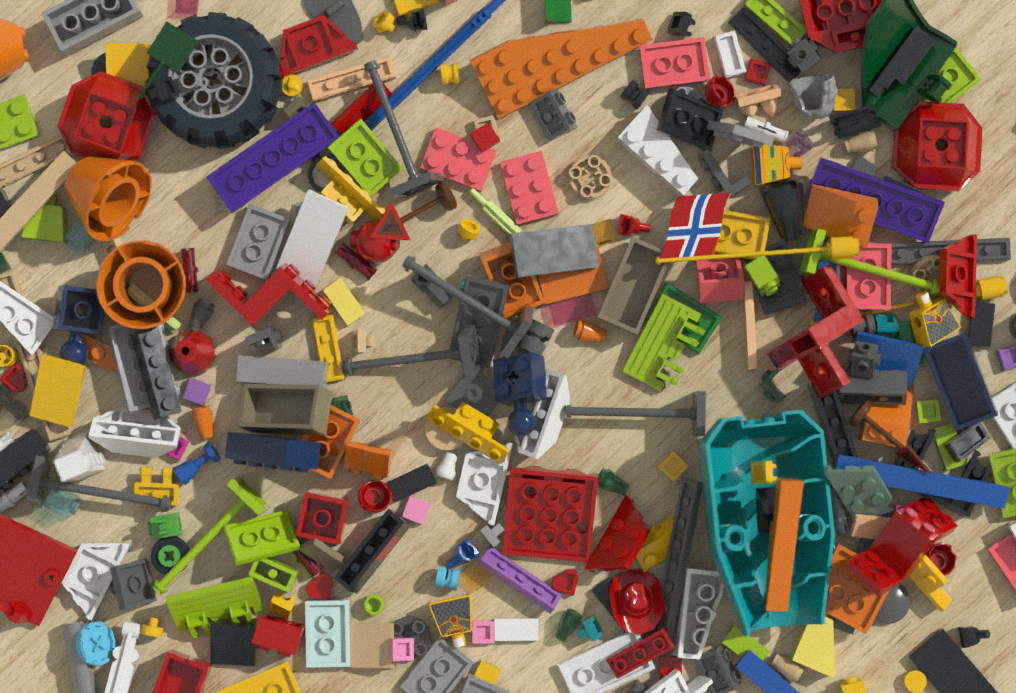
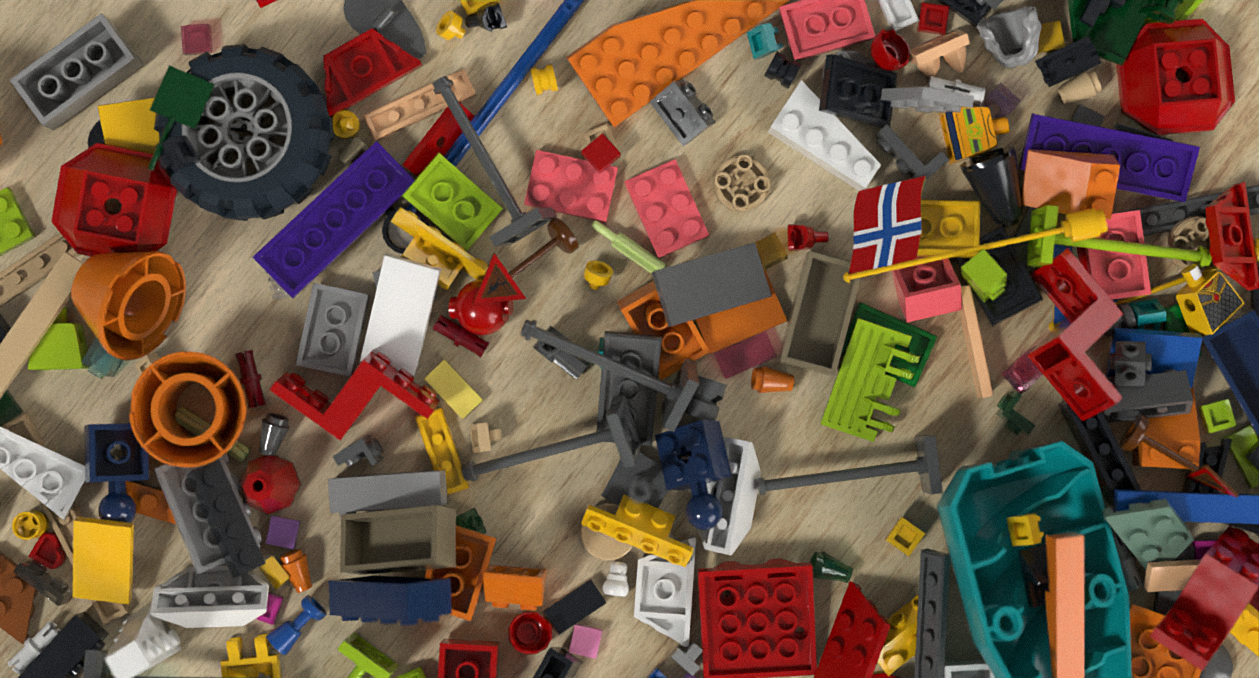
camera: 10 degrees left, 0 degrees up
(186, 421) = (274, 572): none -> yellow tile
(623, 69) = (763, 40): none -> teal tile

